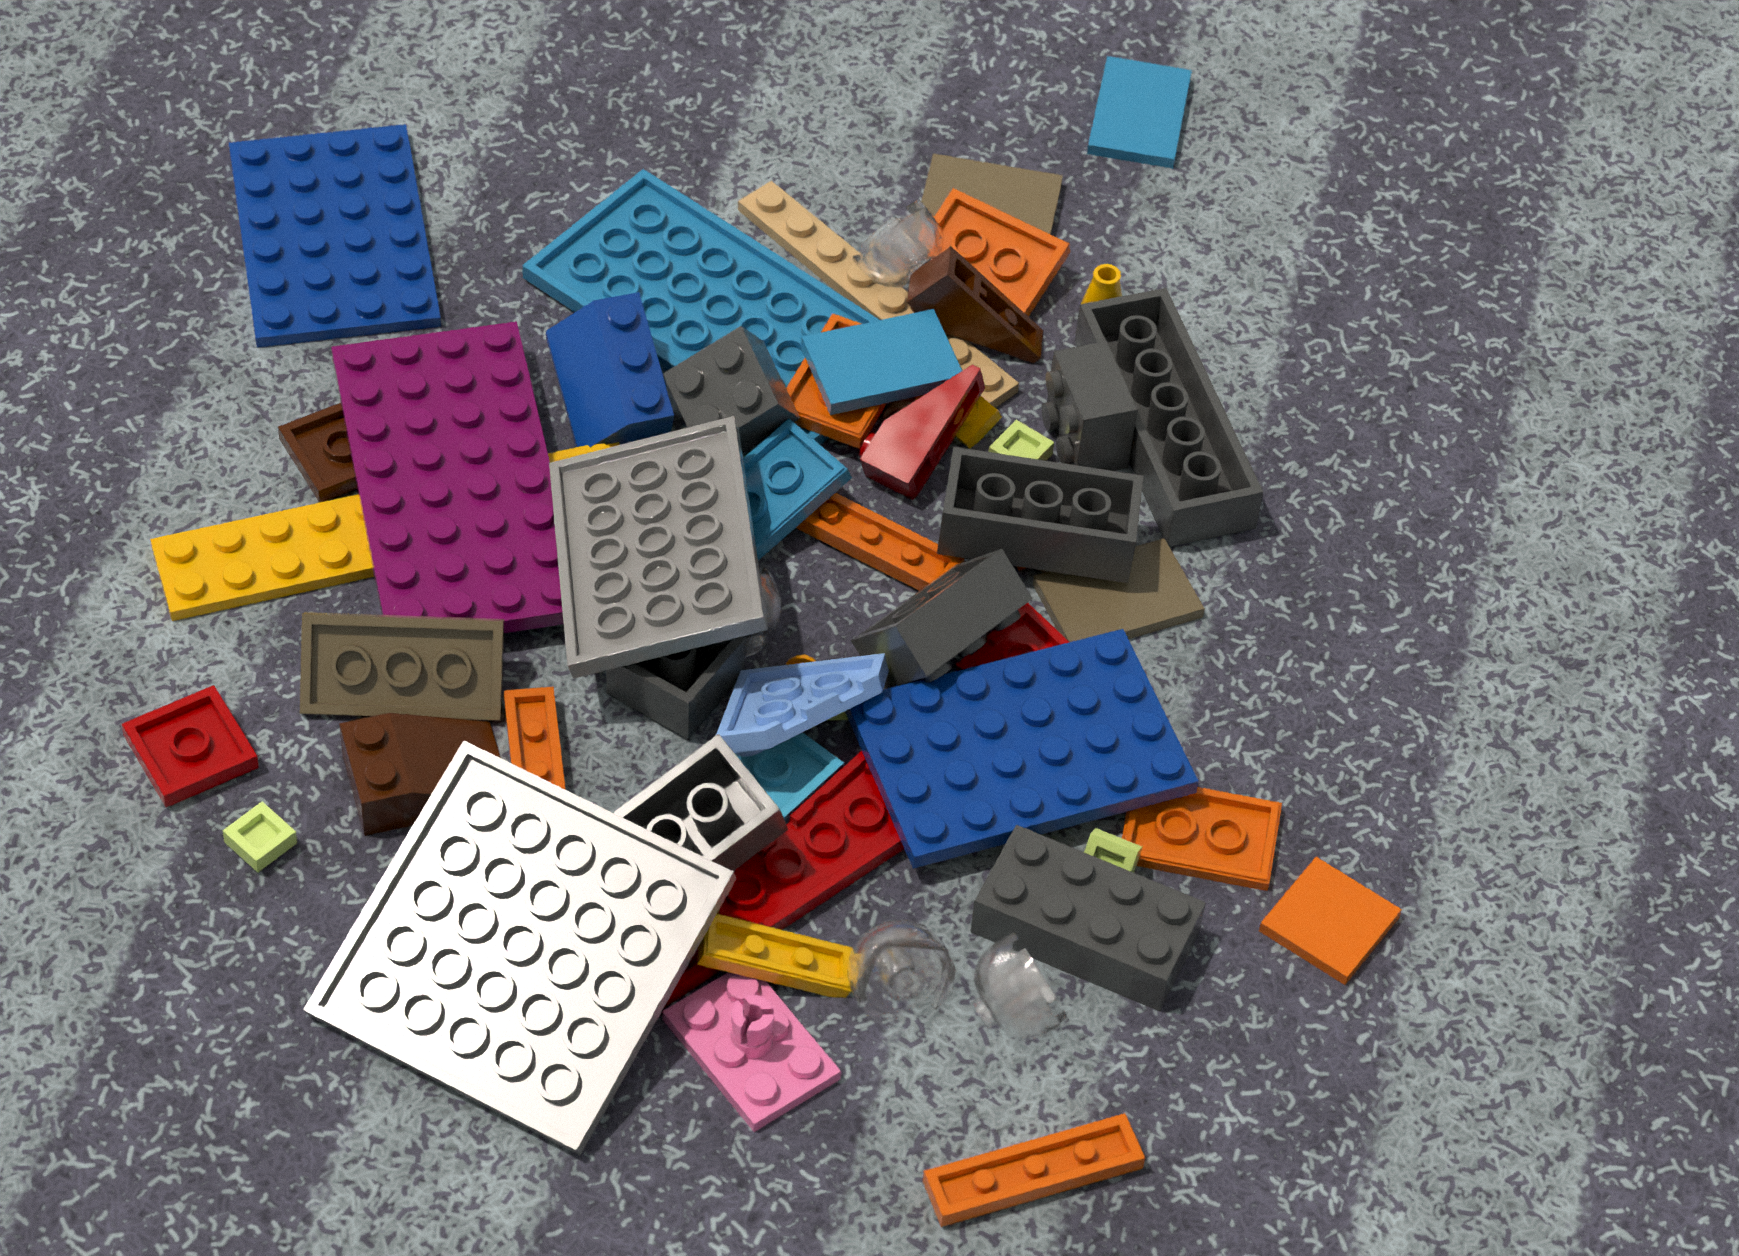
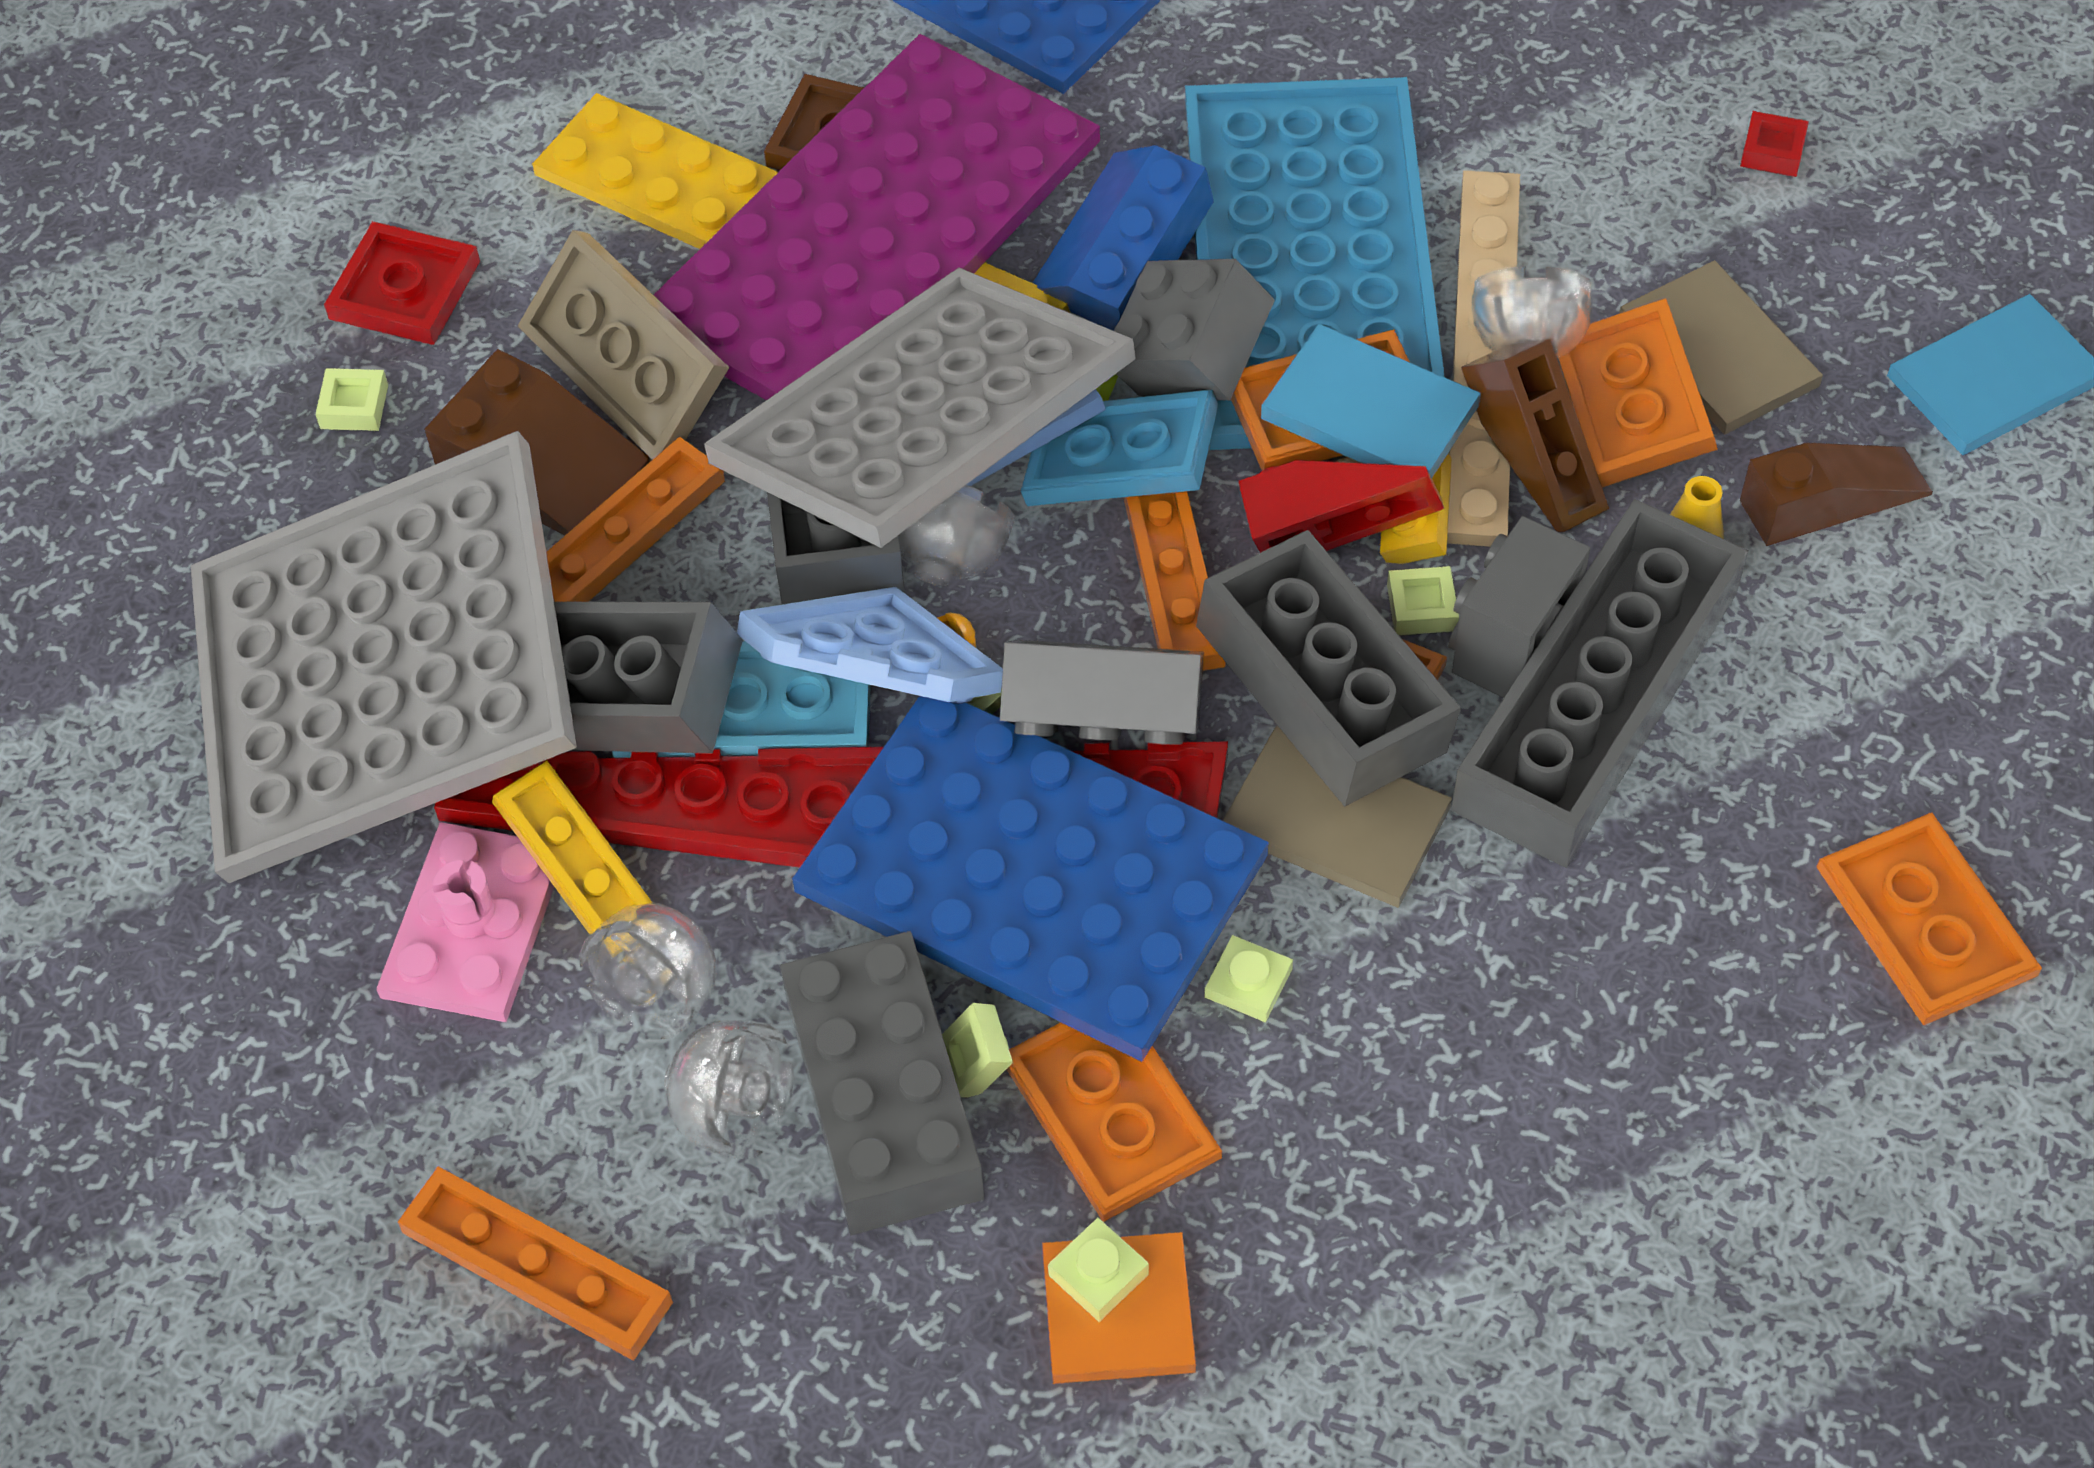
camera: 55 degrees right, 5 degrees up
(882, 65) = (1774, 143): none -> red plate
(1140, 233) = (1826, 486): none -> reddish brown slope
(1187, 711) = (1248, 978): none -> yellowish green plate
(1307, 906) = (1098, 1269): none -> yellowish green plate
(1439, 412) = (1928, 918): none -> orange tile

